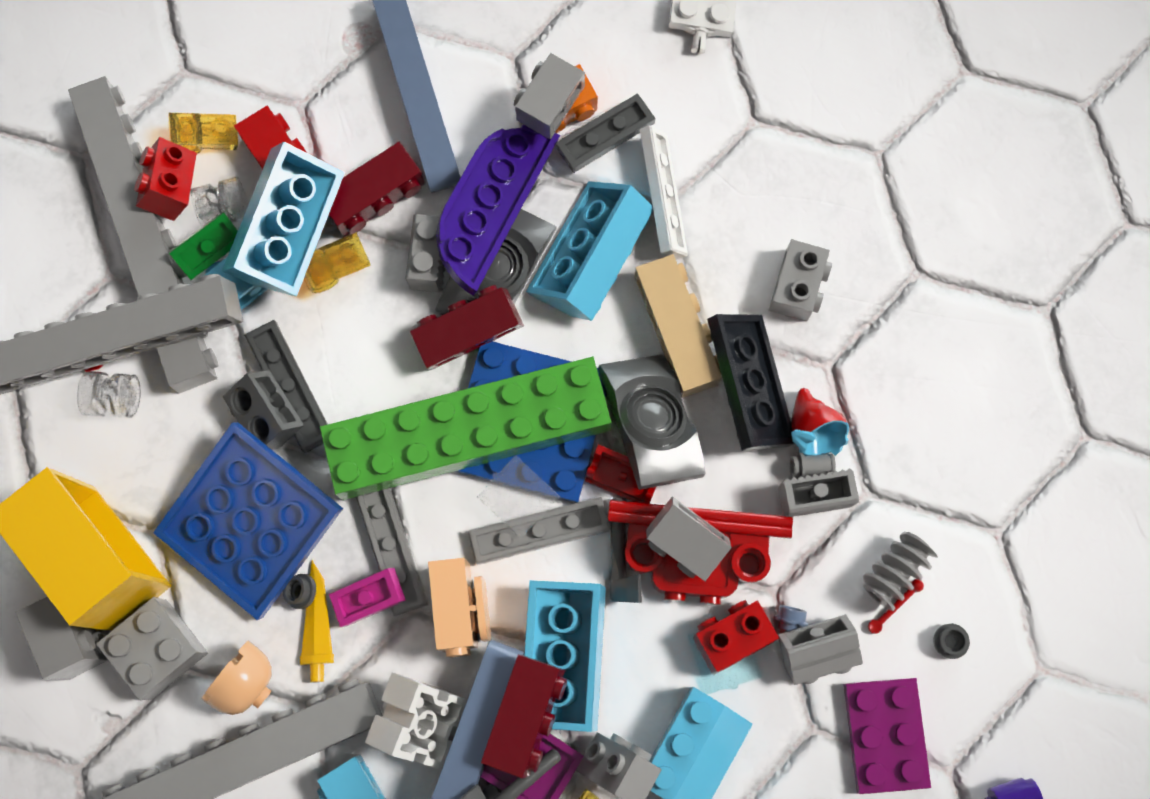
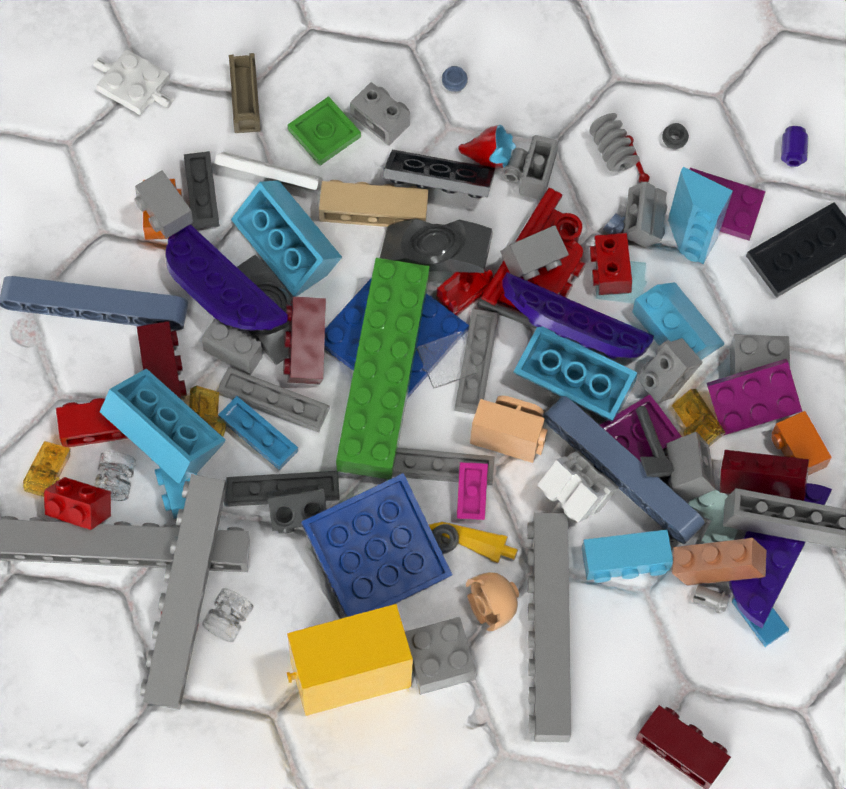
camera: 70 degrees left, 10 degrees down
(59, 648) = (403, 709): light grey brick -> none
(205, 246) = (147, 494): green plate -> none
(339, 329) = (258, 433): none -> dark azure plate
(390, 328) = (274, 399): none -> light grey tile
(524, 717) = (608, 406): dark red brick -> none
(626, 627) = (575, 320): none -> dark purple plate
(748, 229) = (324, 131): none -> bright green tile
(749, 123) = (244, 93): none -> dark tan container
(836, 720) = (697, 214): none -> medium azure slope
(891, 344) = (454, 78): none -> sand blue plate

